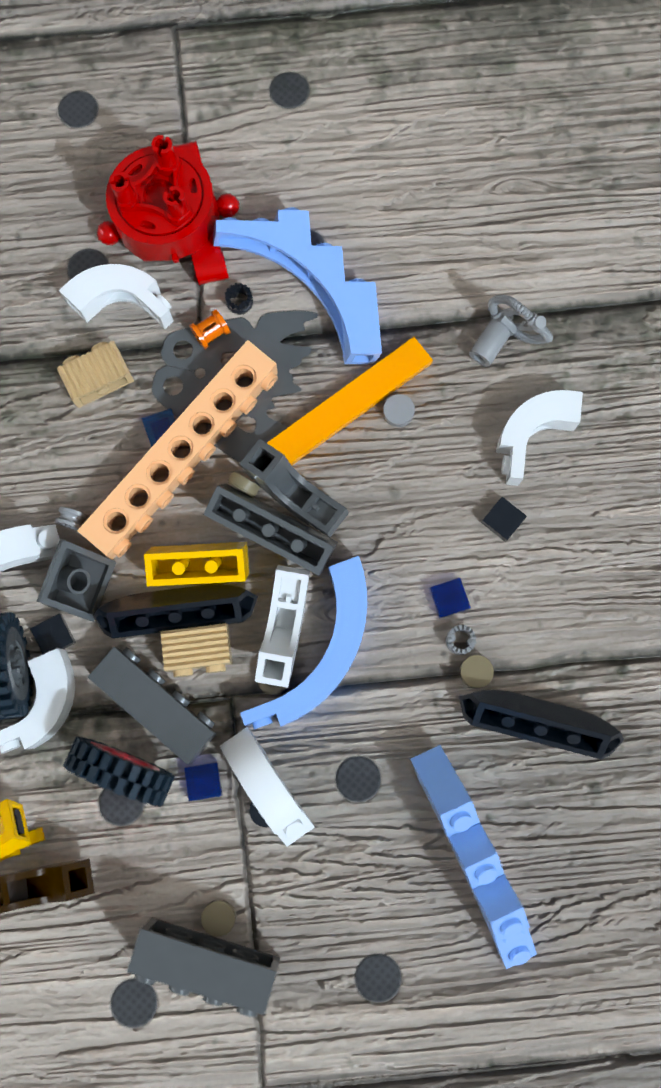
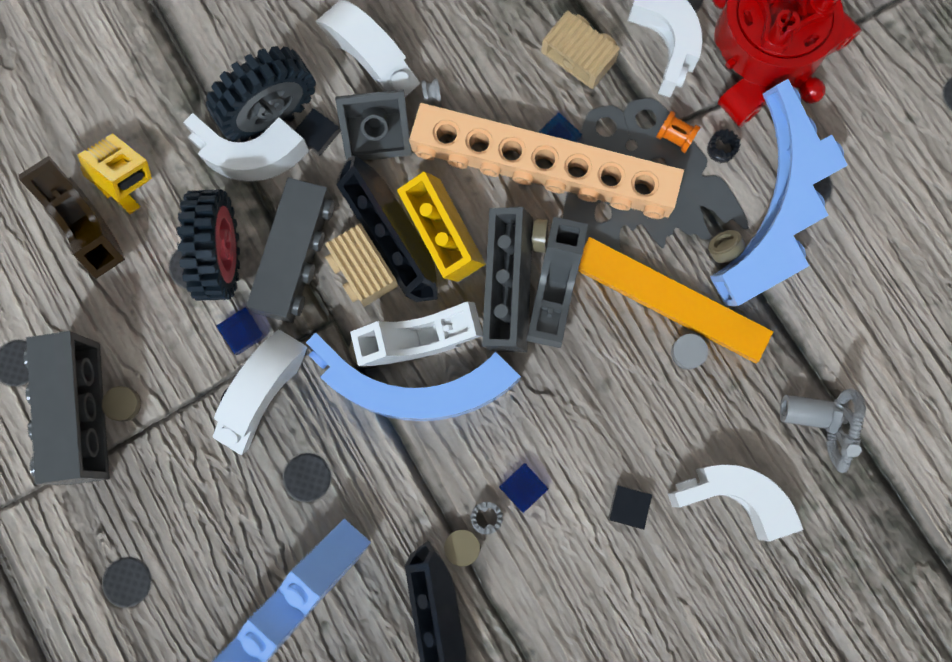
camera: 65 degrees right, 0 degrees up
(326, 338) = (726, 246): none -> dark tan tile

